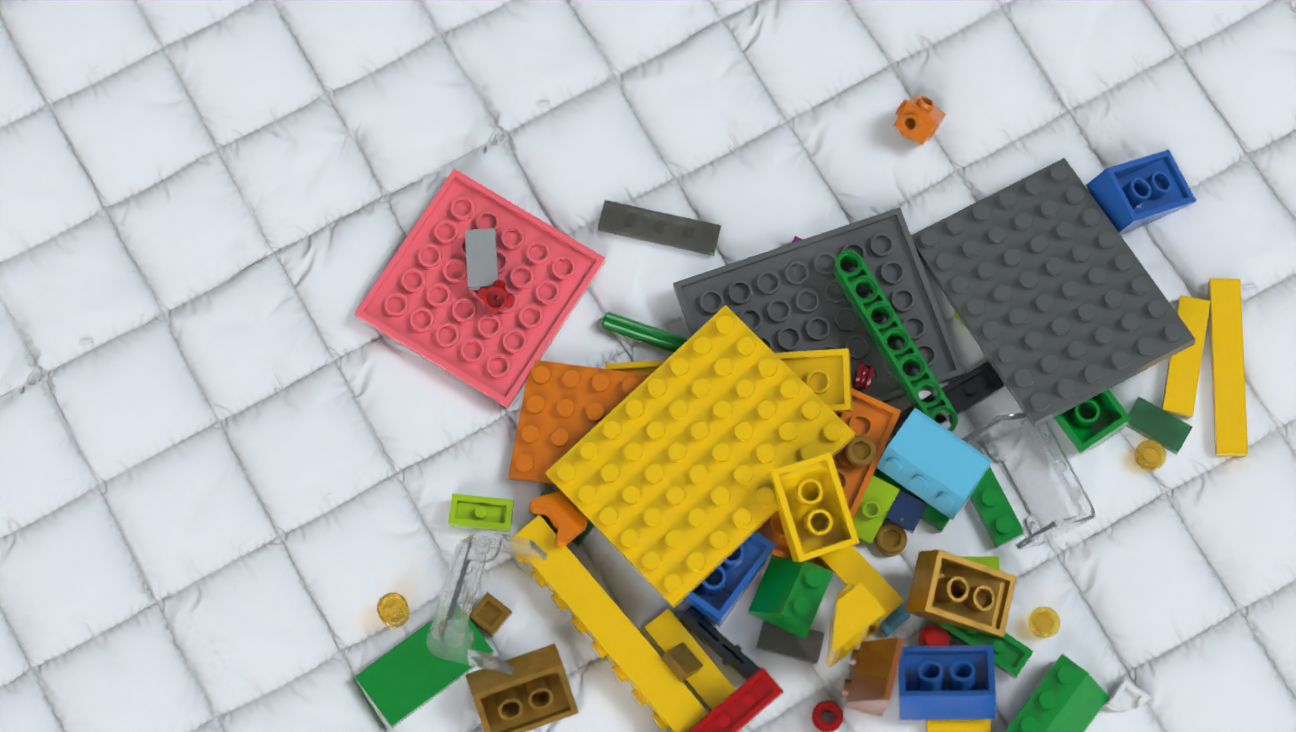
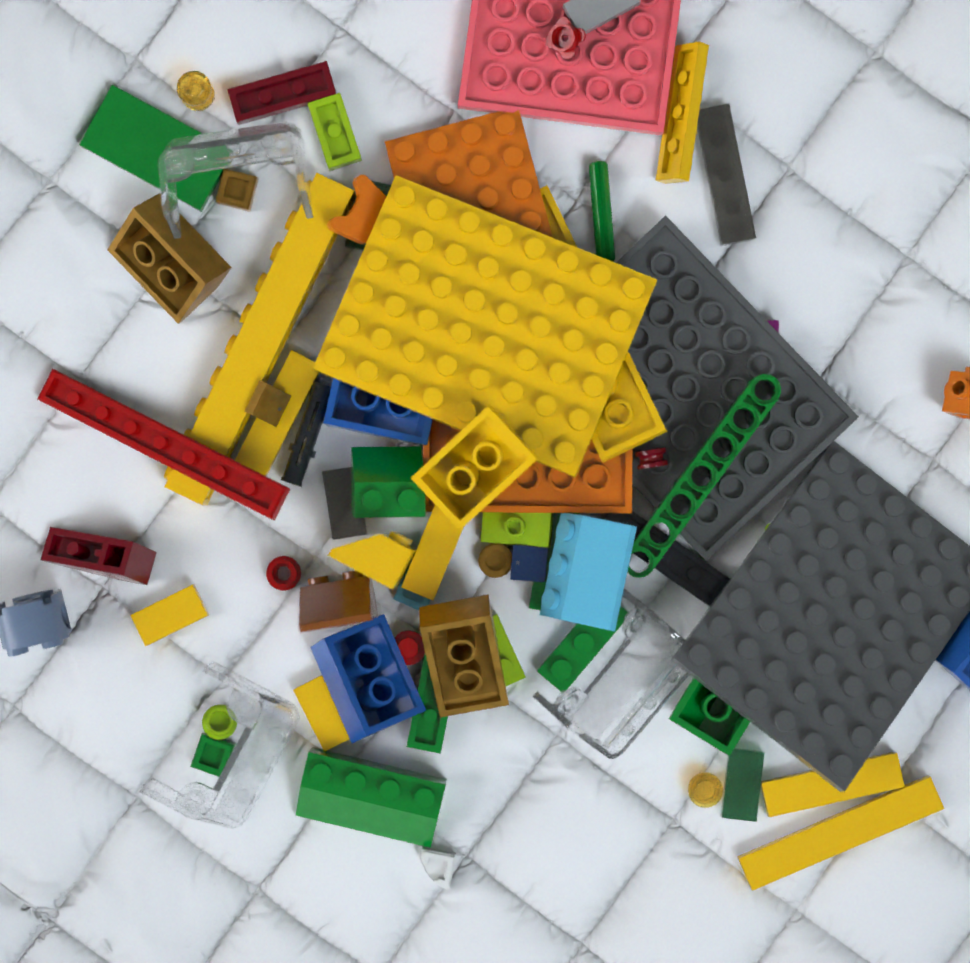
camera: 65 degrees right, 15 degrees up
(428, 541) = (281, 92): none -> dark red plate
(582, 227) = (682, 113): none -> yellow plate
(860, 451) = (567, 490): pearl gold tile -> none
(1044, 622) = (478, 751): clear yellow plate -> none

